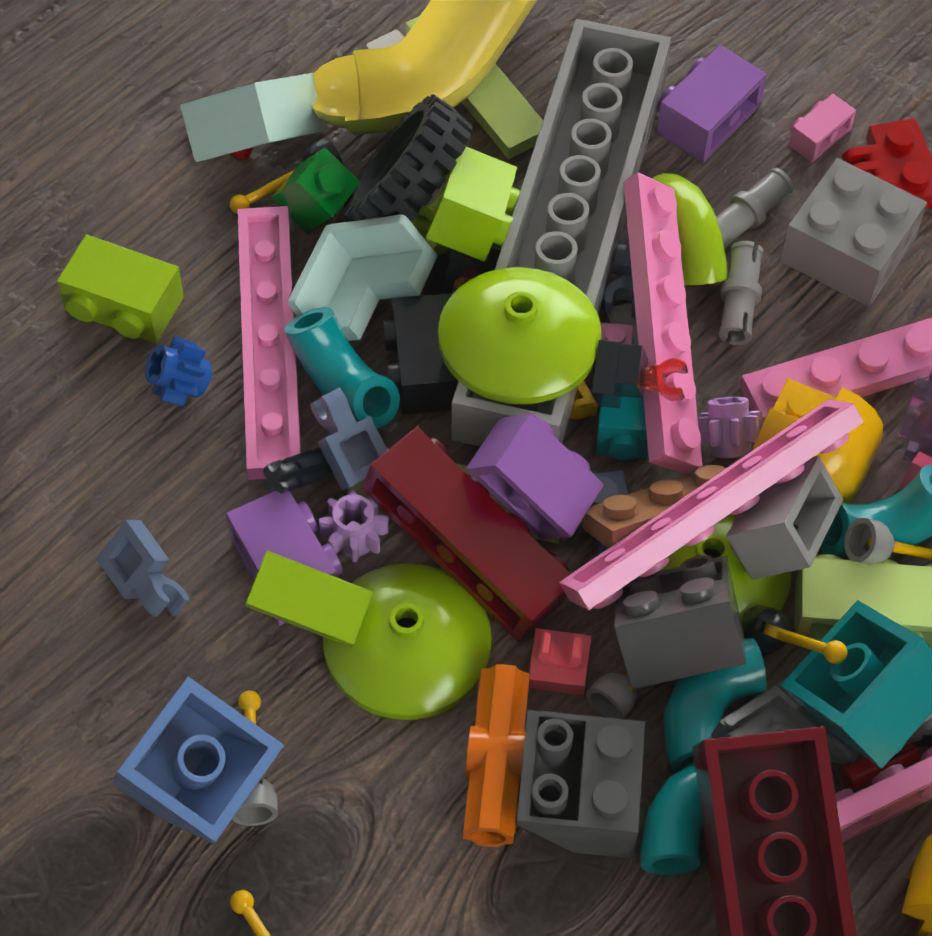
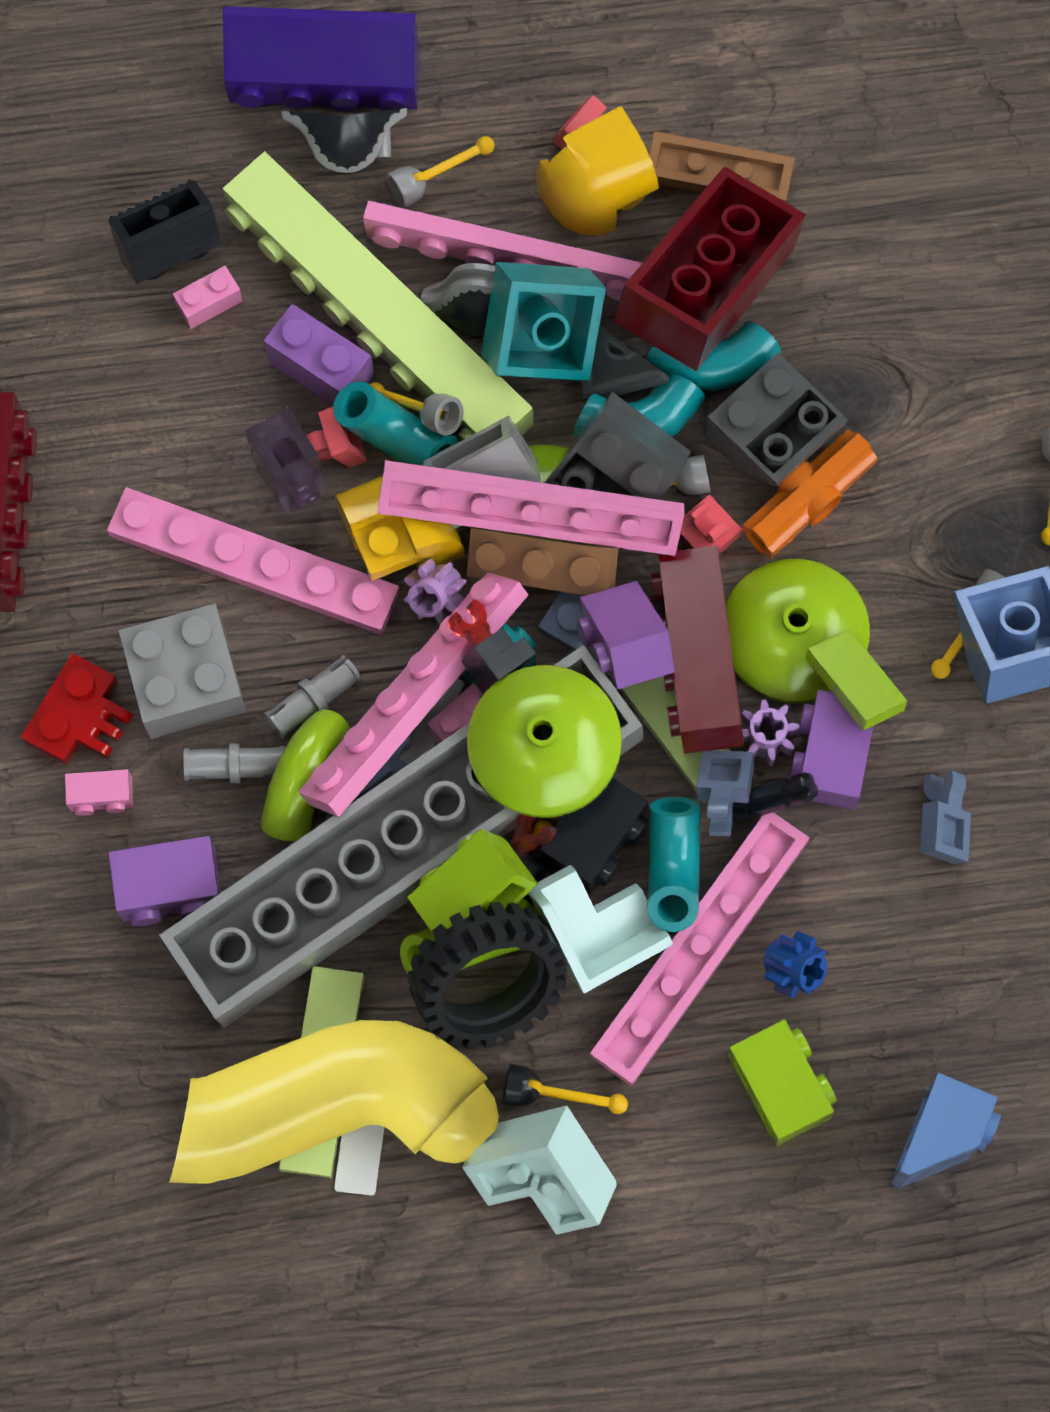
camera: 135 degrees left, 15 degrees up
(316, 190) = (559, 1043): green brick -> none
(778, 632) = (554, 430): hinge -> none

